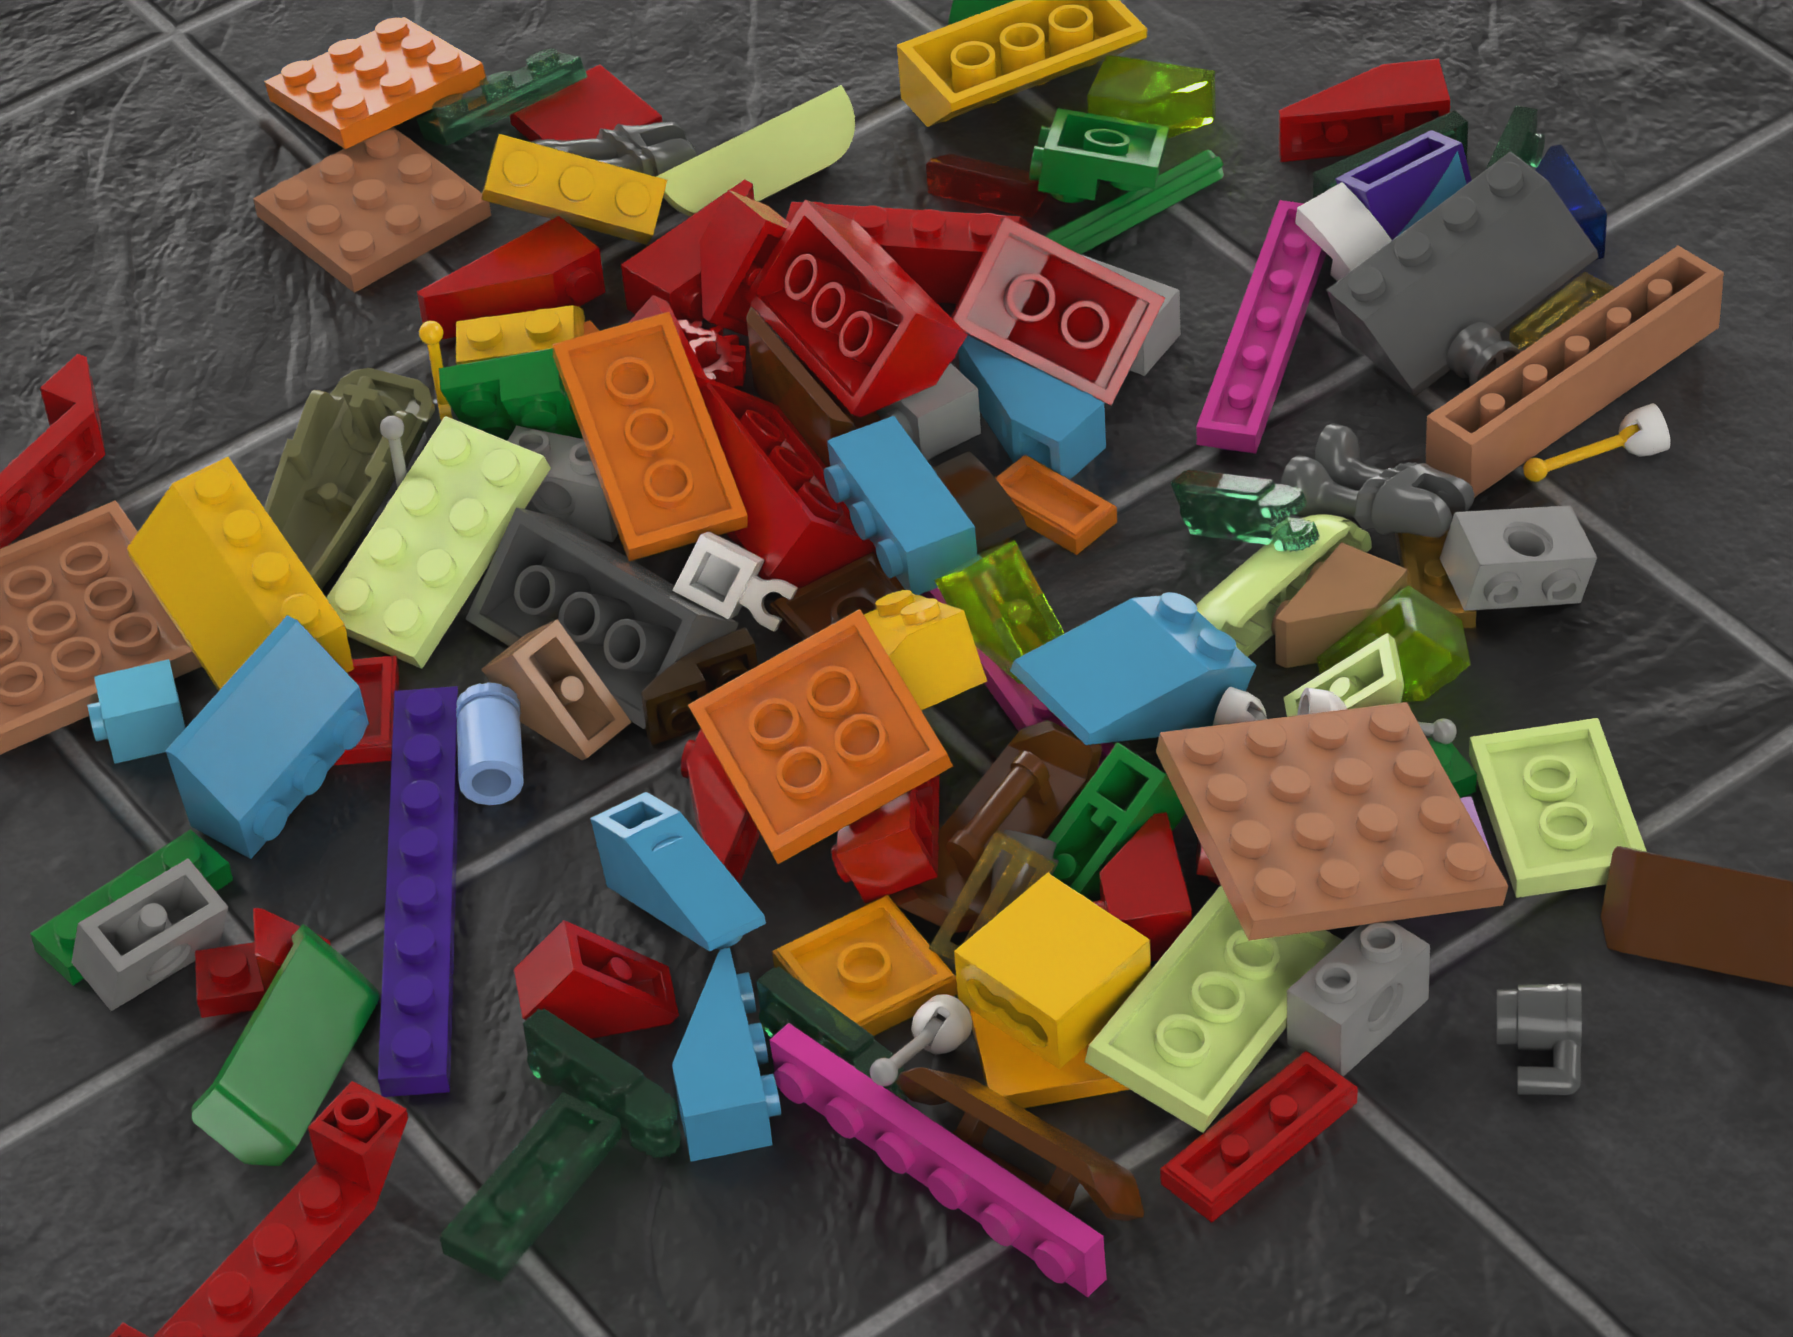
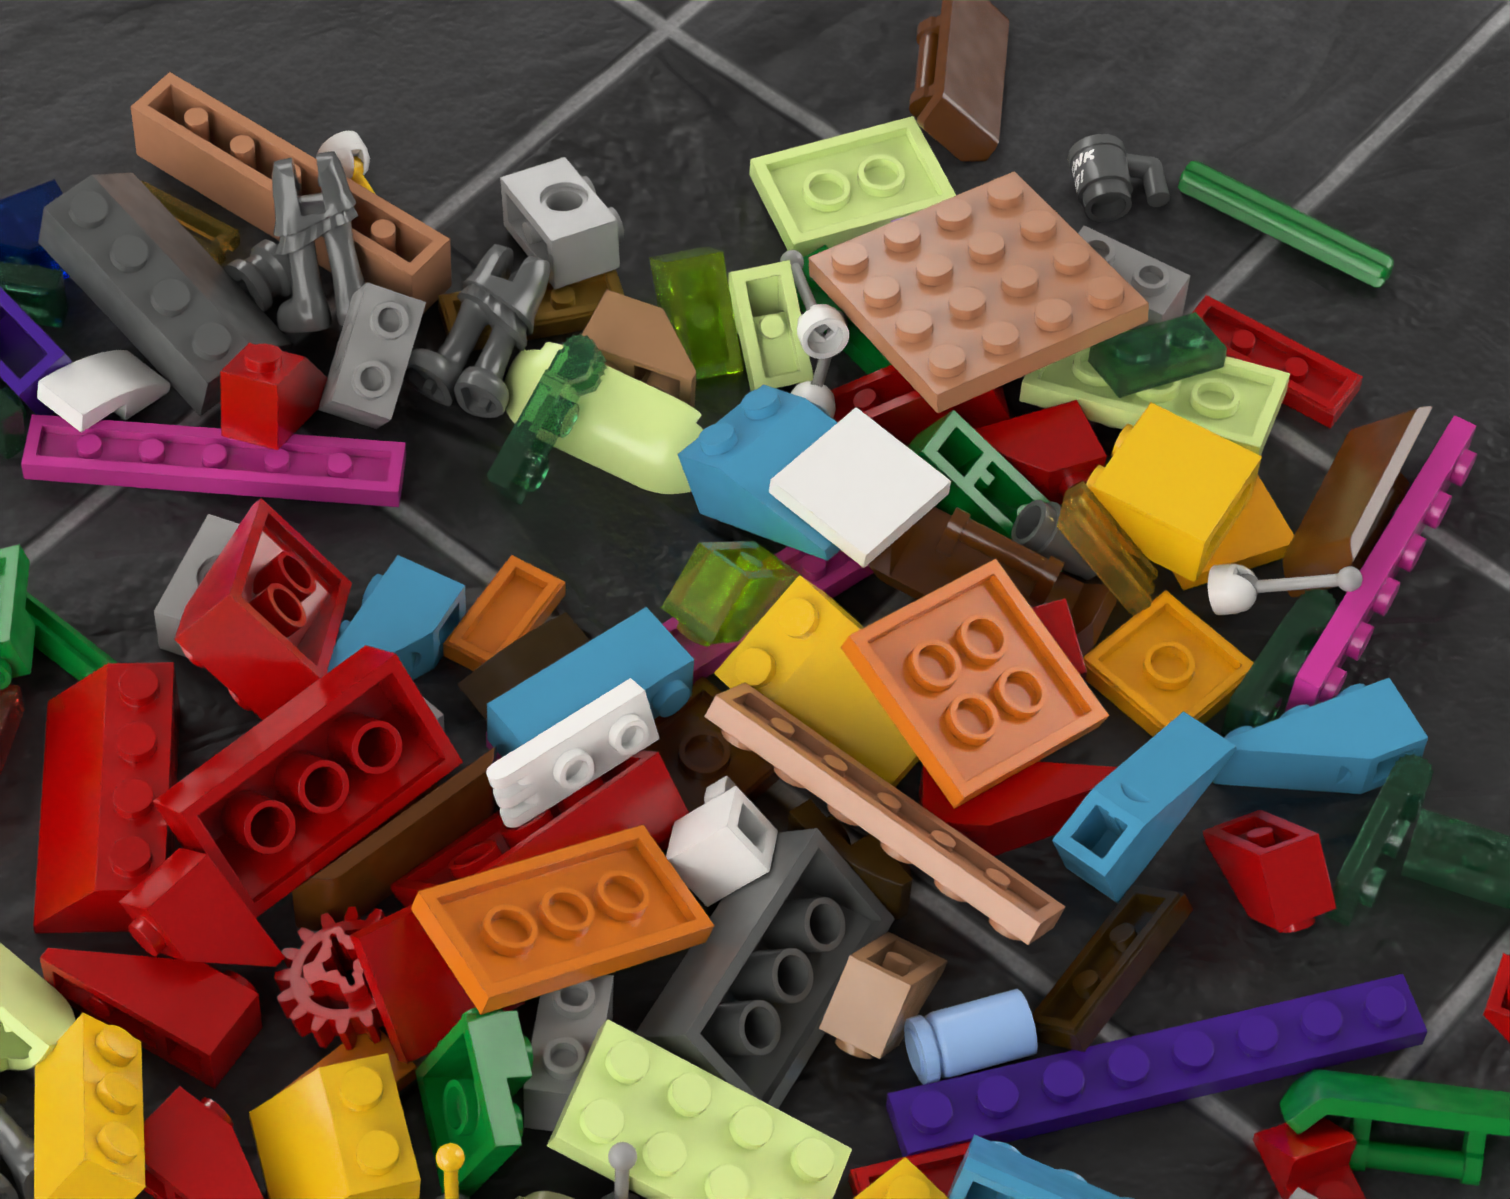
camera: 110 degrees left, 10 degrees up
(530, 854) = (1109, 966): none -> dark brown tile
(658, 706) = (901, 824): none -> nougat plate
(827, 468) = (572, 753): none -> white hinge
(1075, 682) = (859, 487): none -> white tile
(1244, 993) = (1157, 354): none -> clear green plate
(1321, 341) = (268, 395): none -> red slope
(1344, 388) = (372, 356): none -> light grey brick
(1458, 1188) = (1286, 224): none -> green axle
(1486, 338) = (301, 222): none -> dark grey piece

